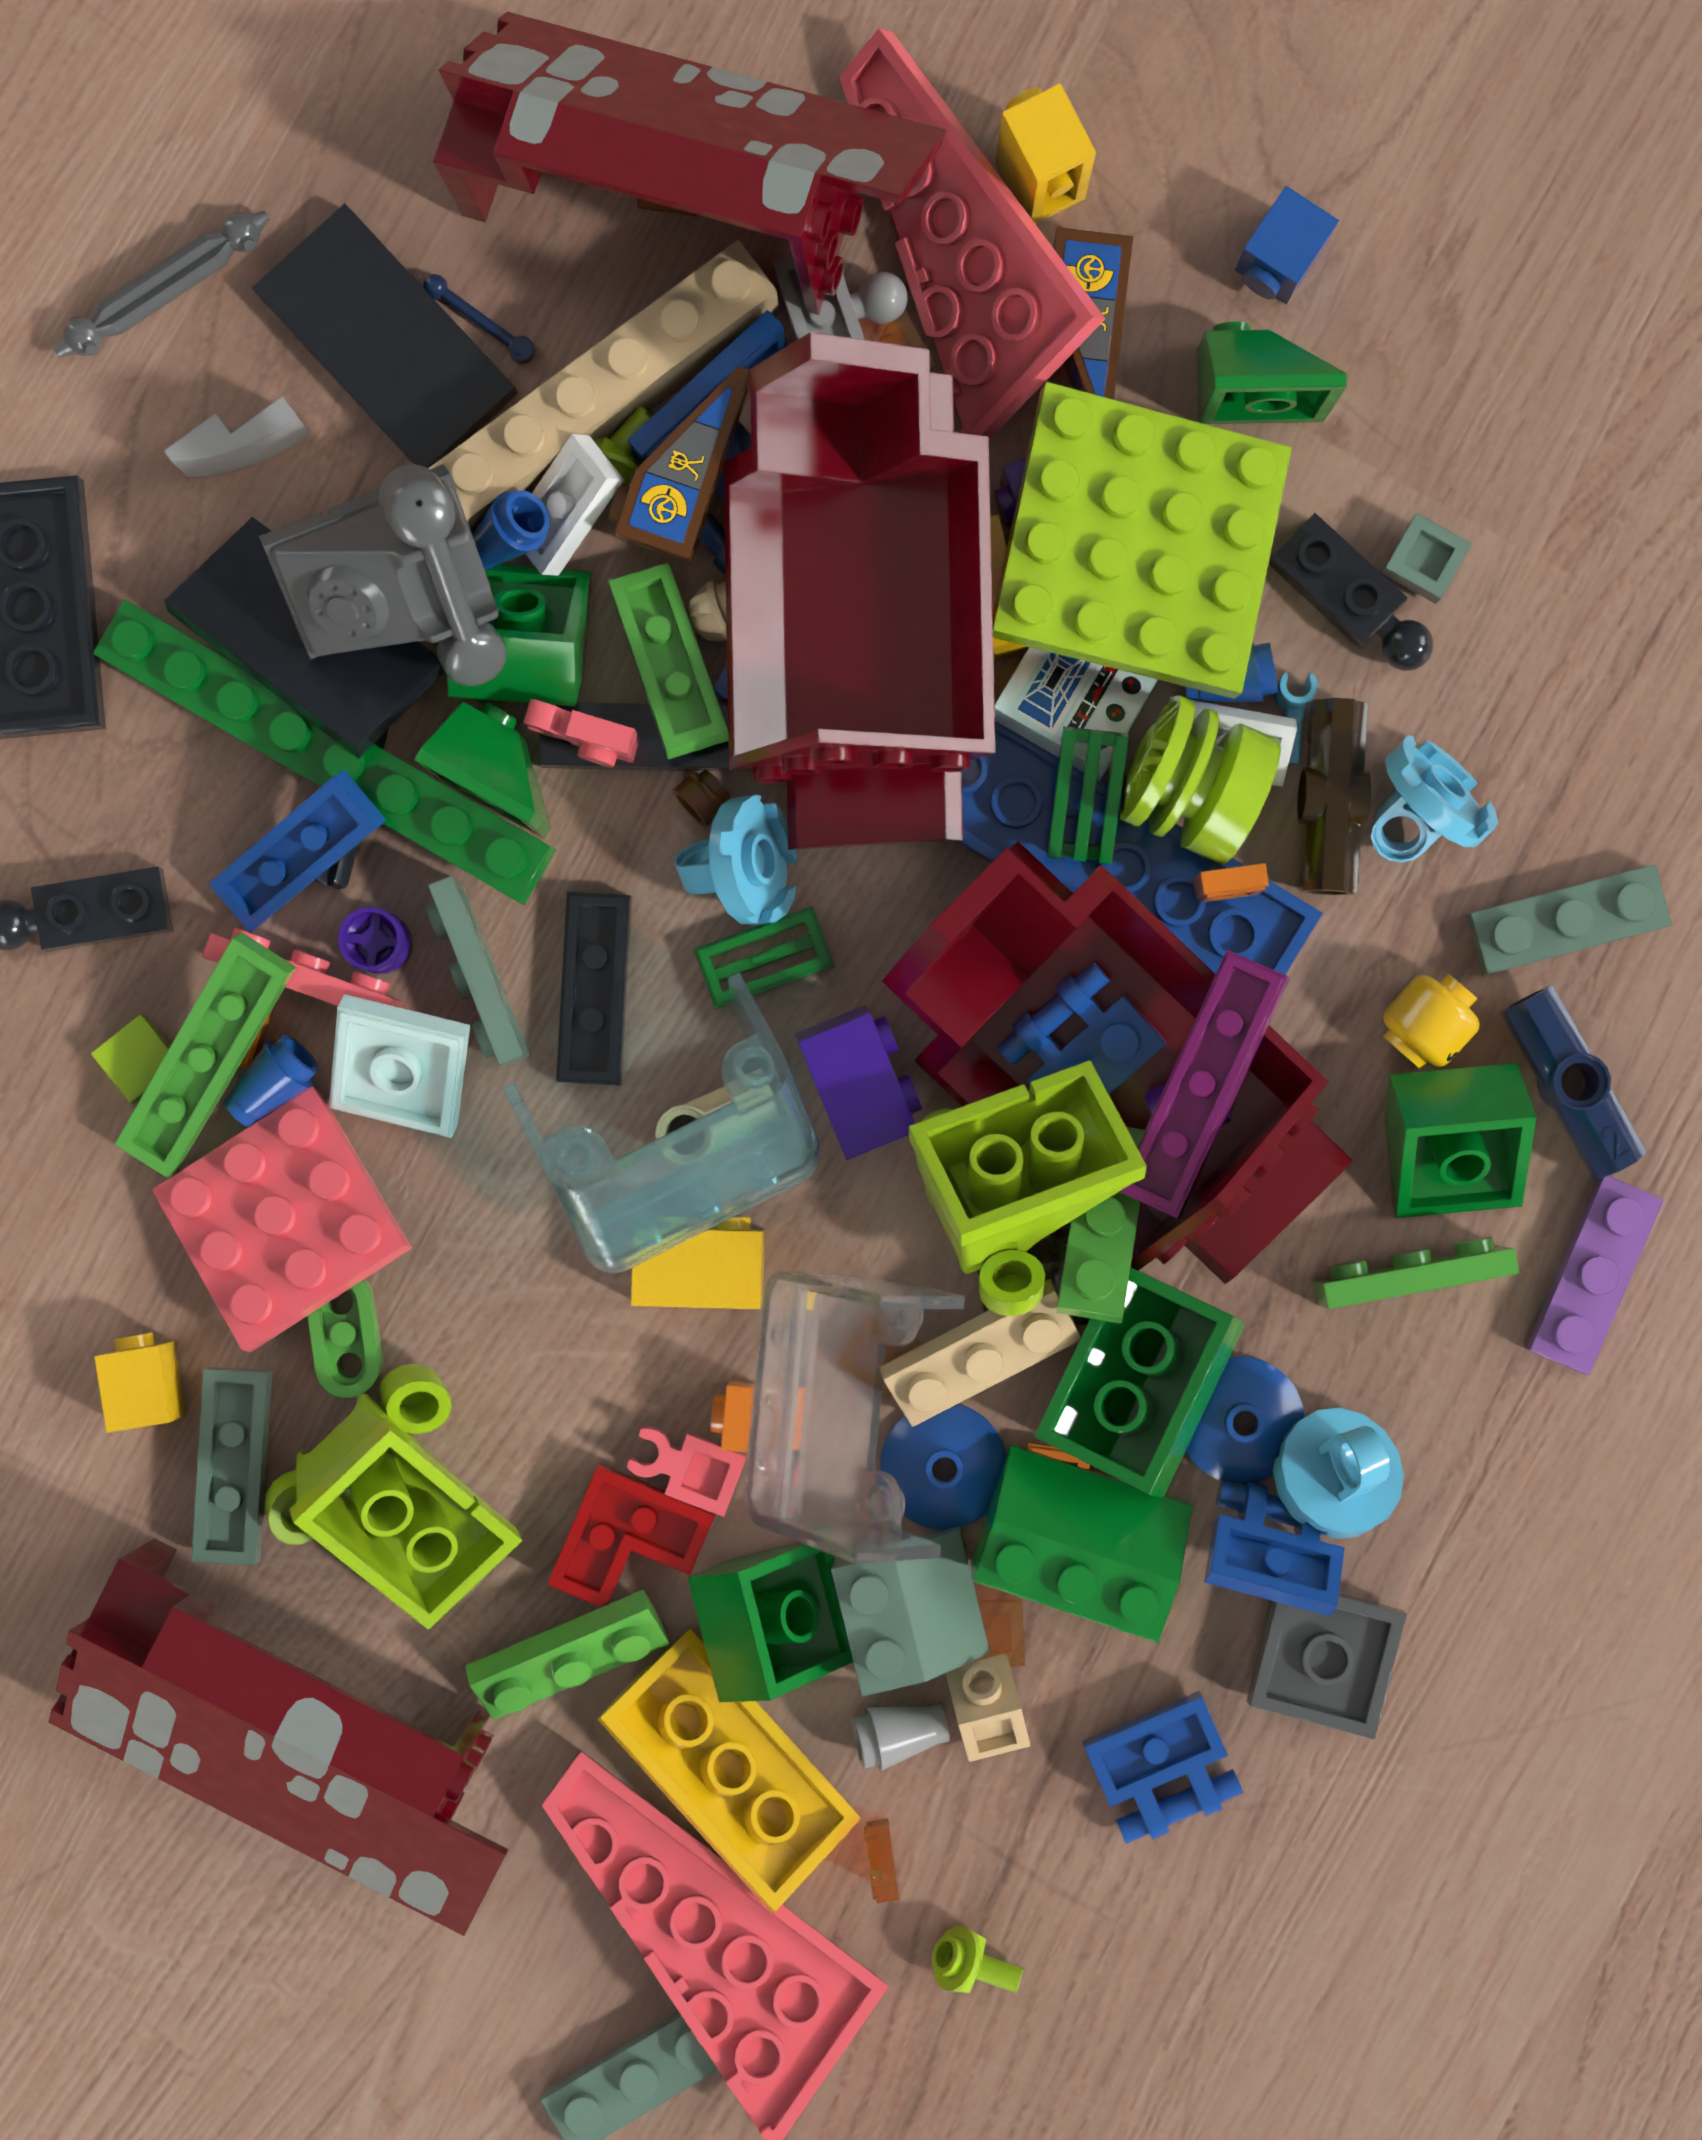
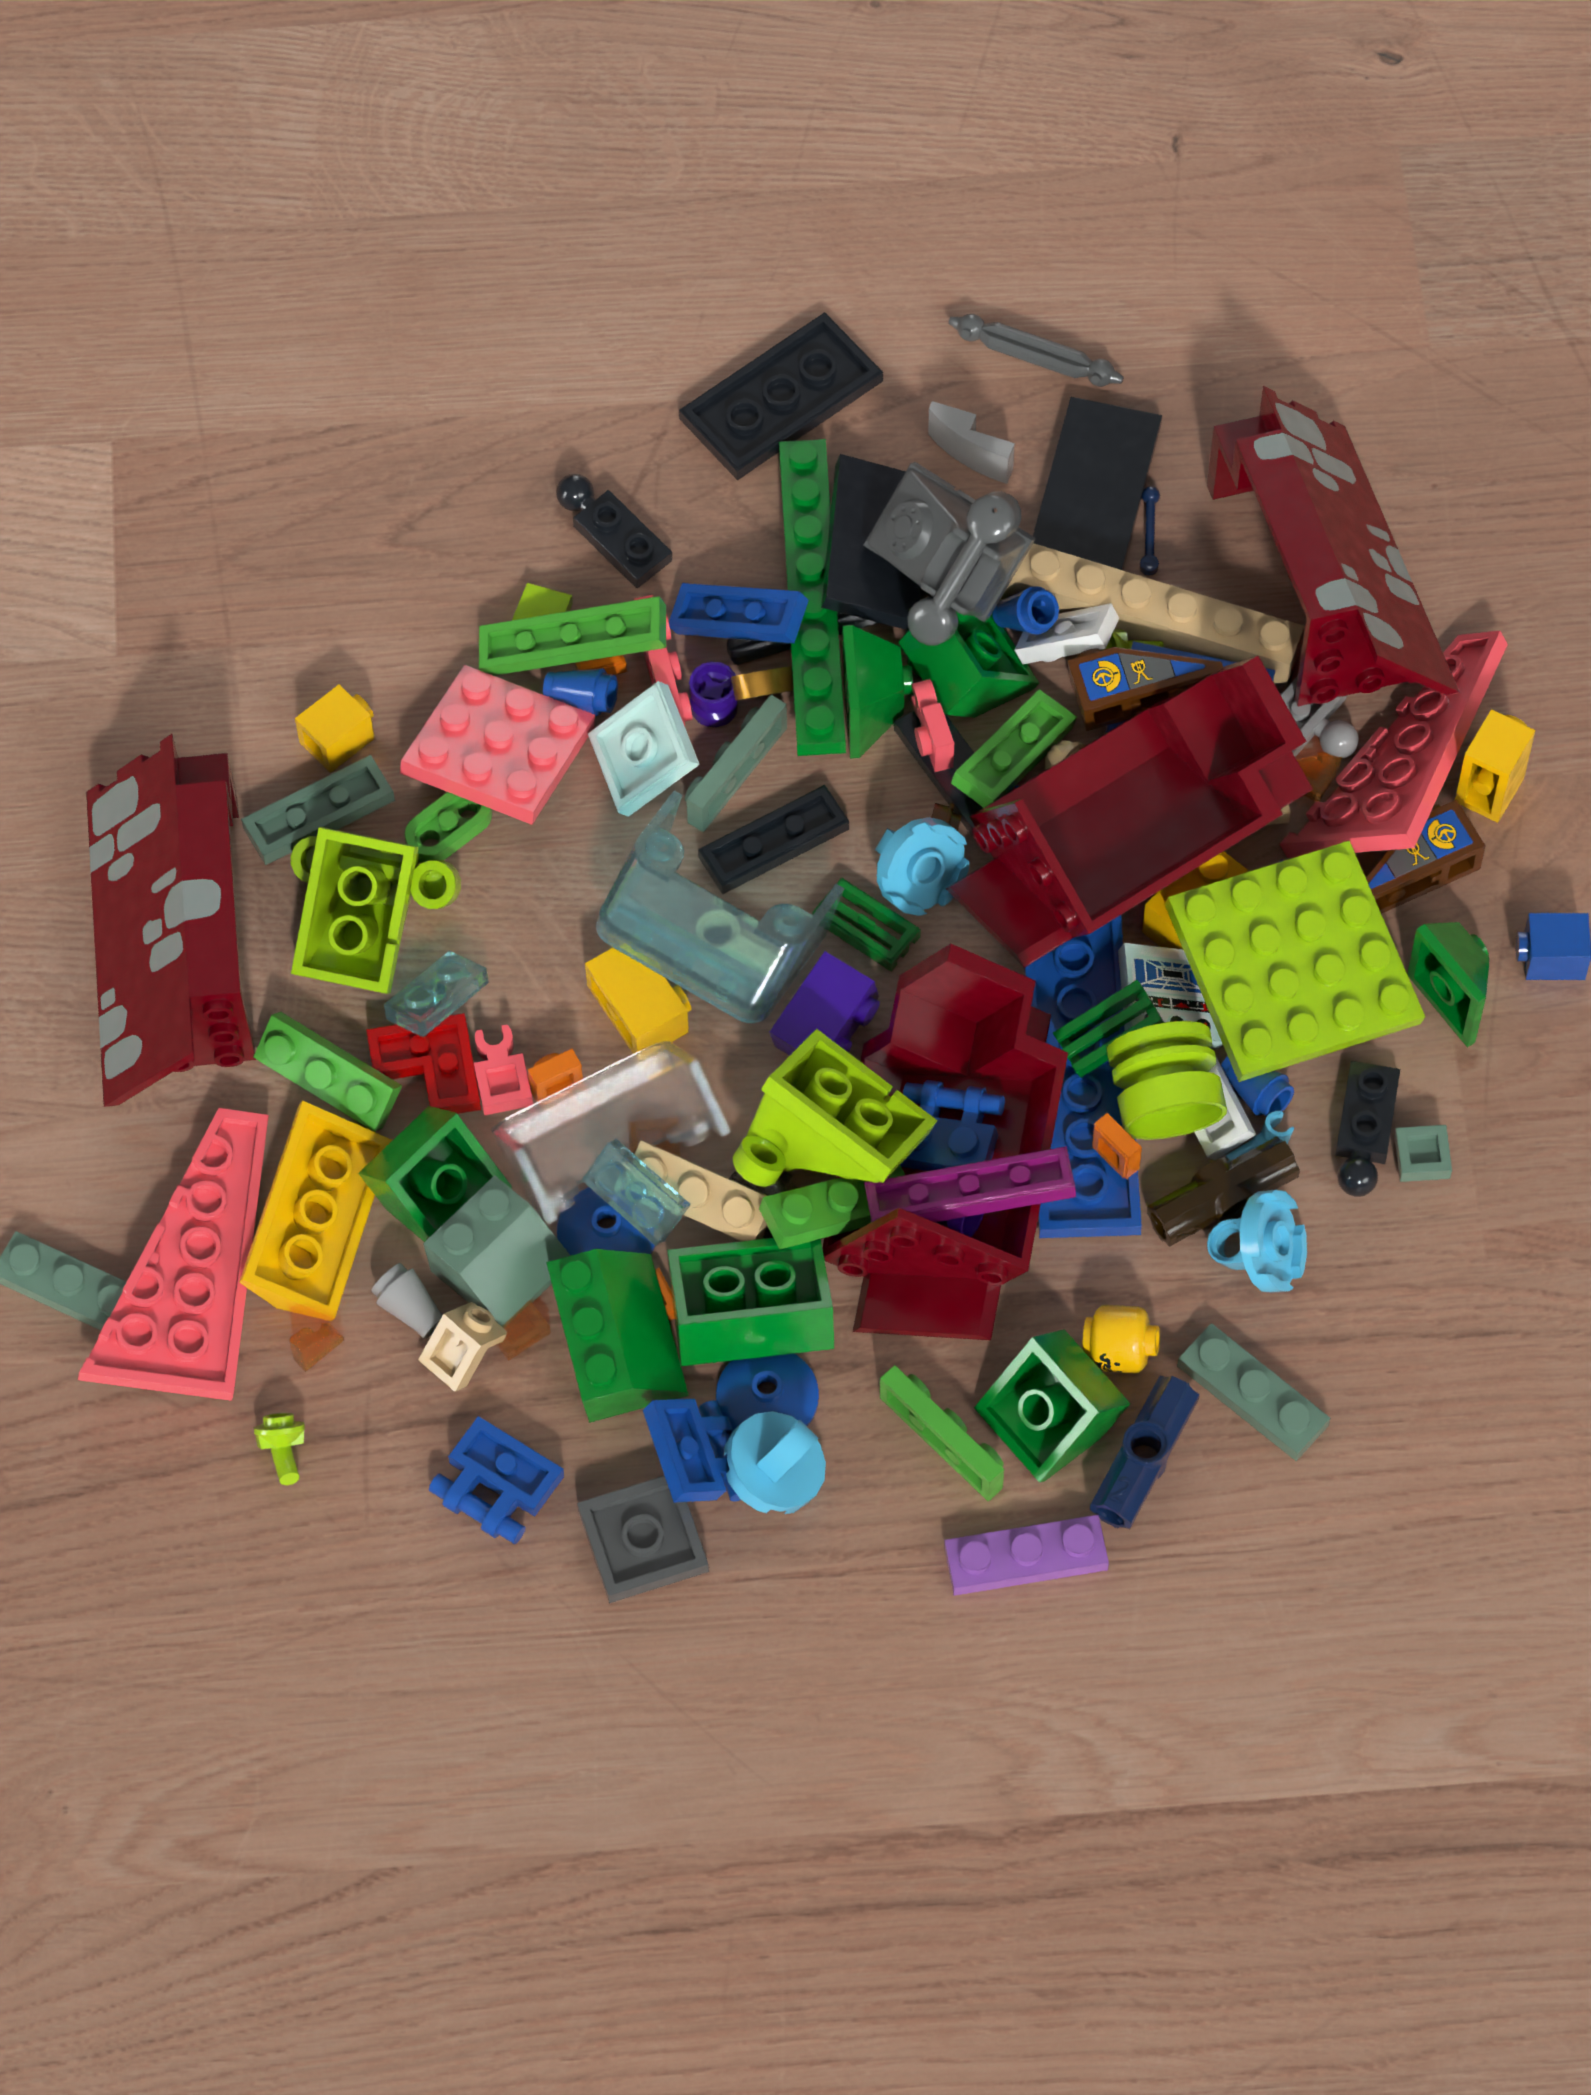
camera: 50 degrees right, 25 degrees down
(406, 883) = (763, 683): none -> pearl gold beam
(552, 1481) = (436, 993): none -> clear light blue plate
(940, 1423) = (636, 1192): none -> clear light blue plate

